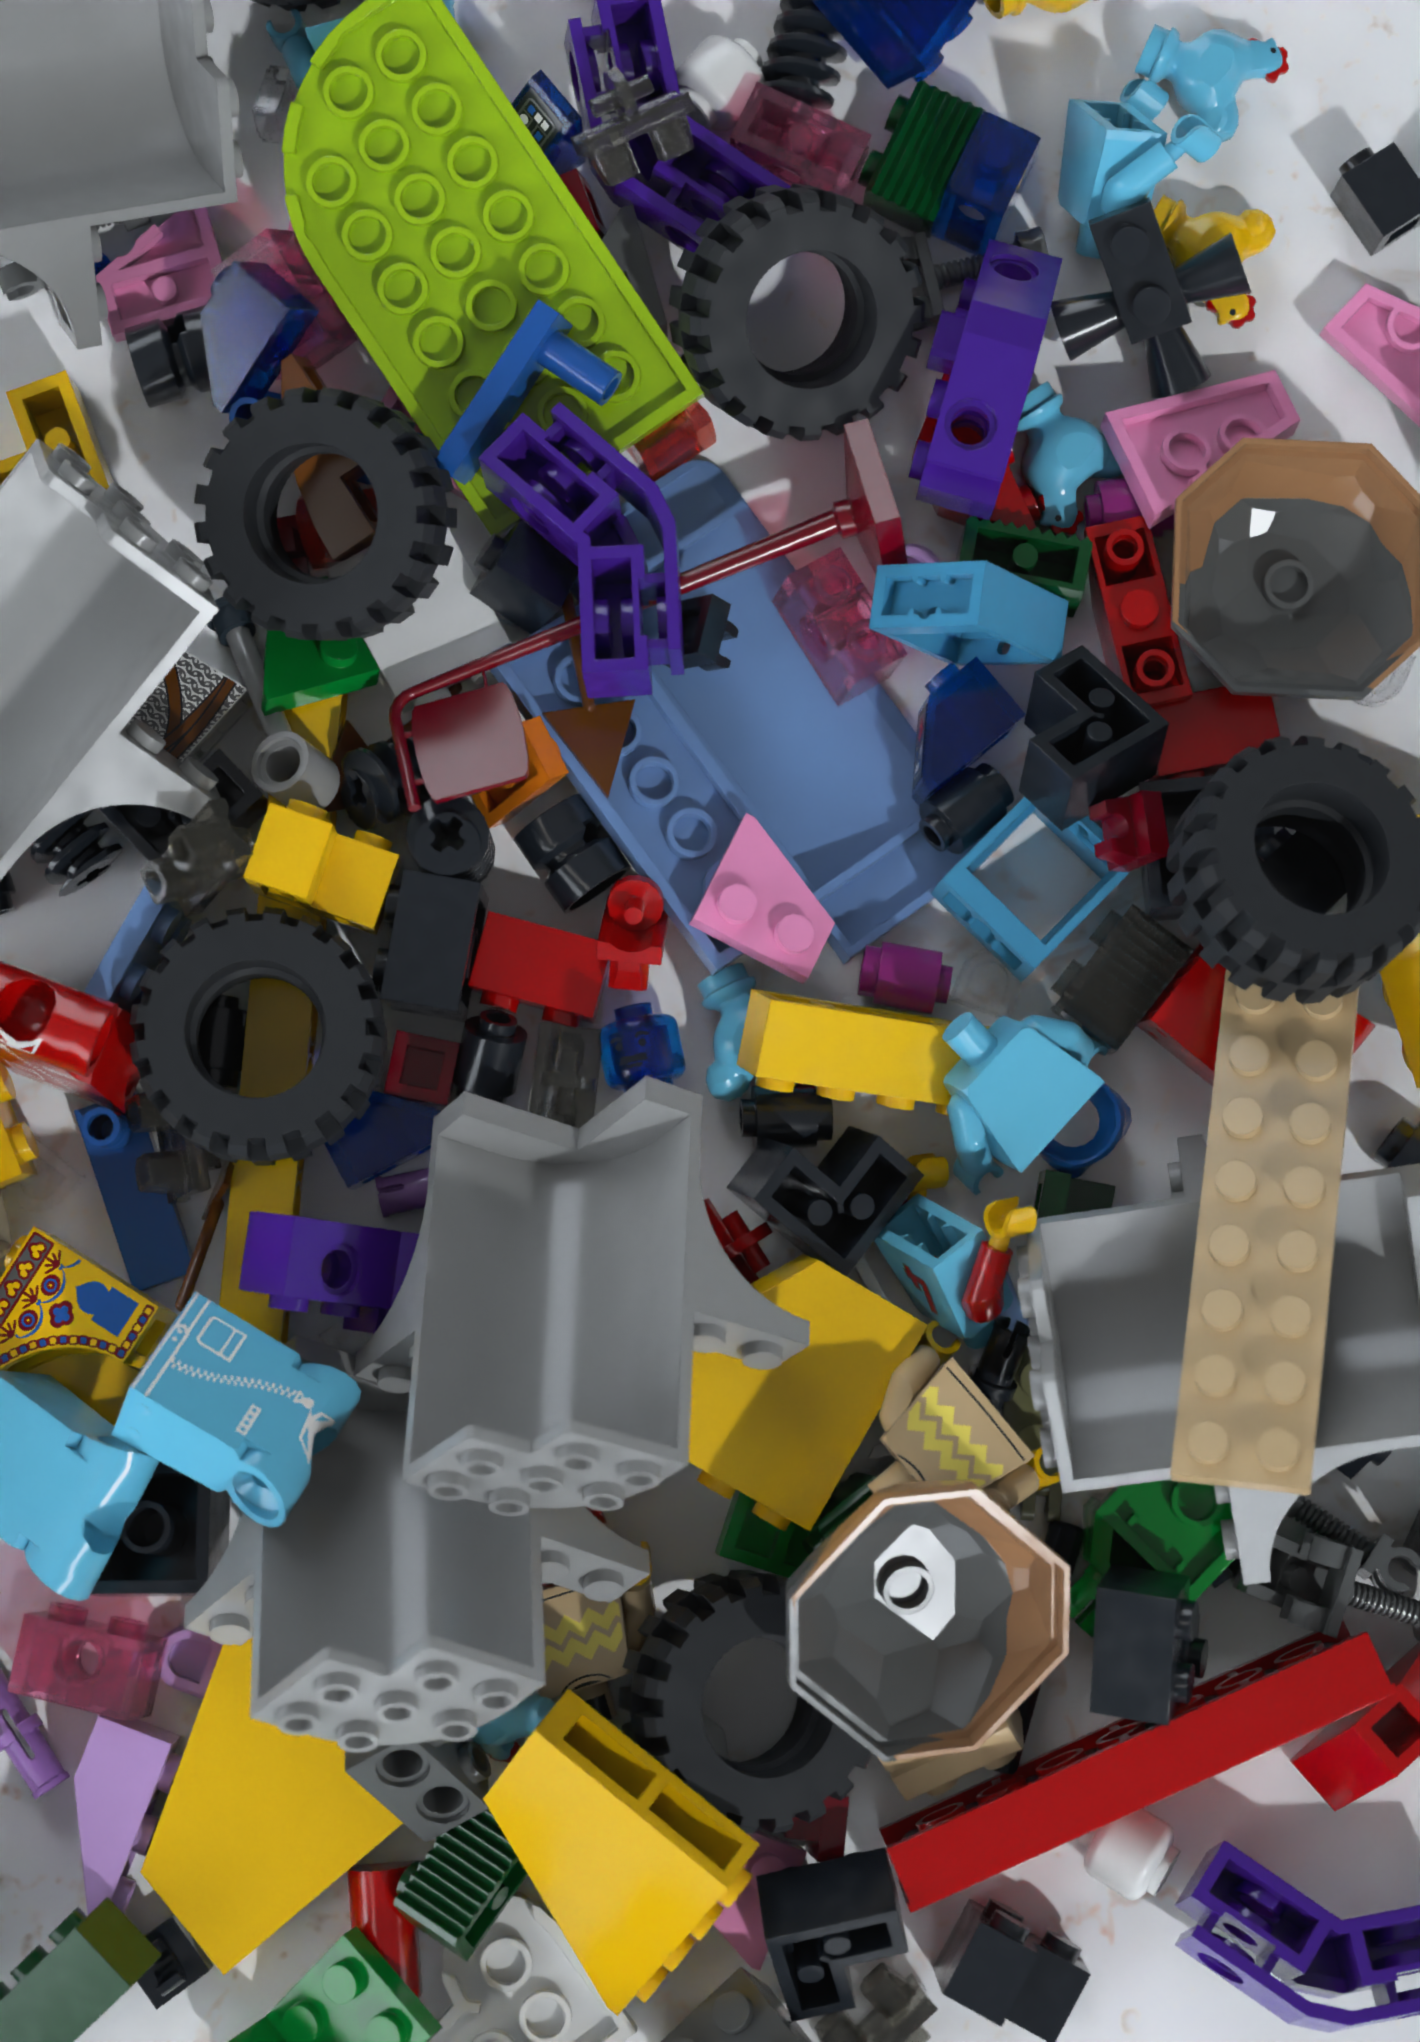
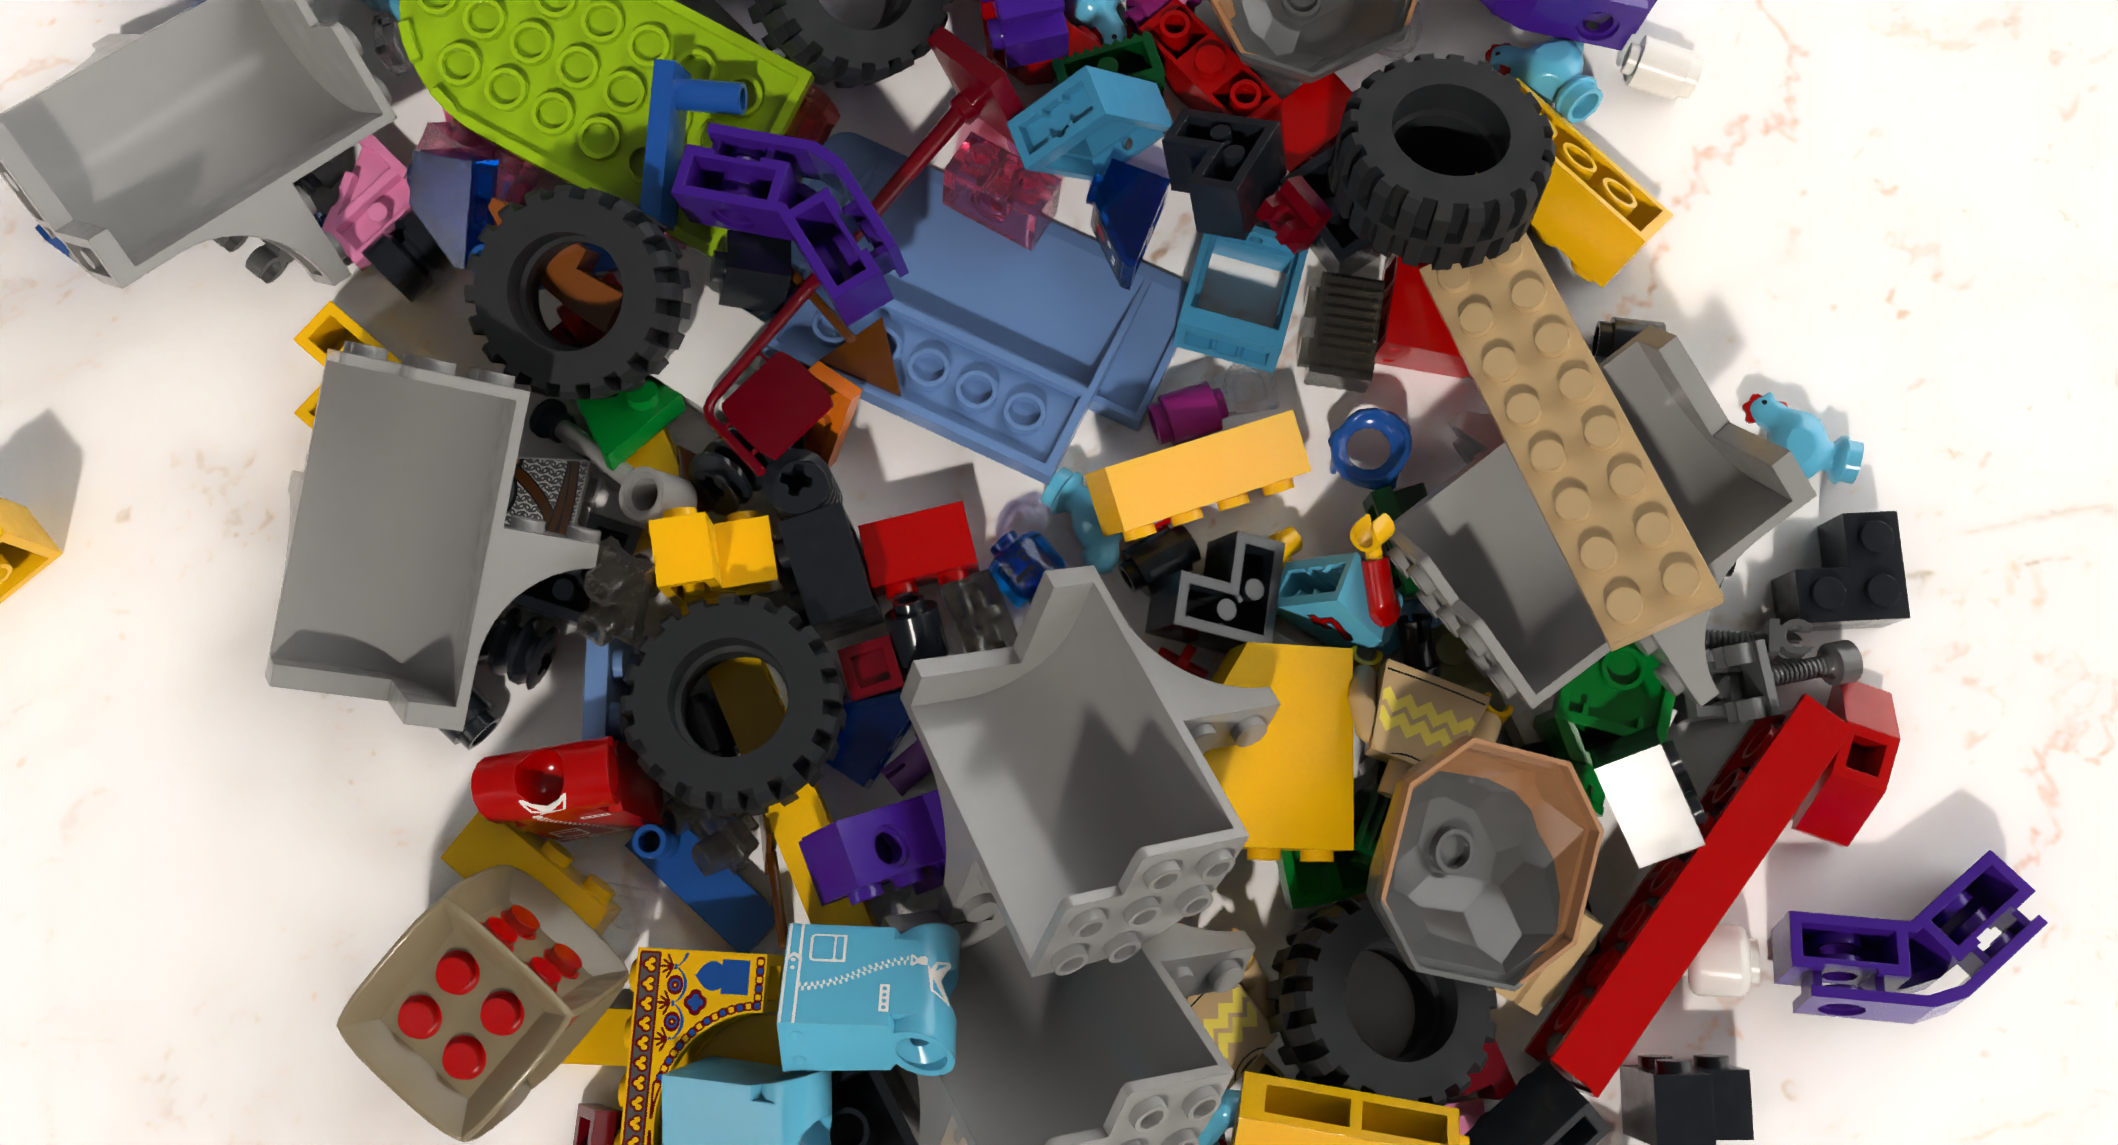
camera: 25 degrees left, 5 degrees down
(572, 853) = (895, 453): black wheel -> none
(632, 932) = (972, 482): red hips -> none
(703, 631) = (911, 241): black tile -> none
(763, 905) = (1058, 412): bright pink wing -> none
(965, 808) = (1164, 270): black brick -> none
(1014, 1089) = (1316, 445): medium azure torso -> none

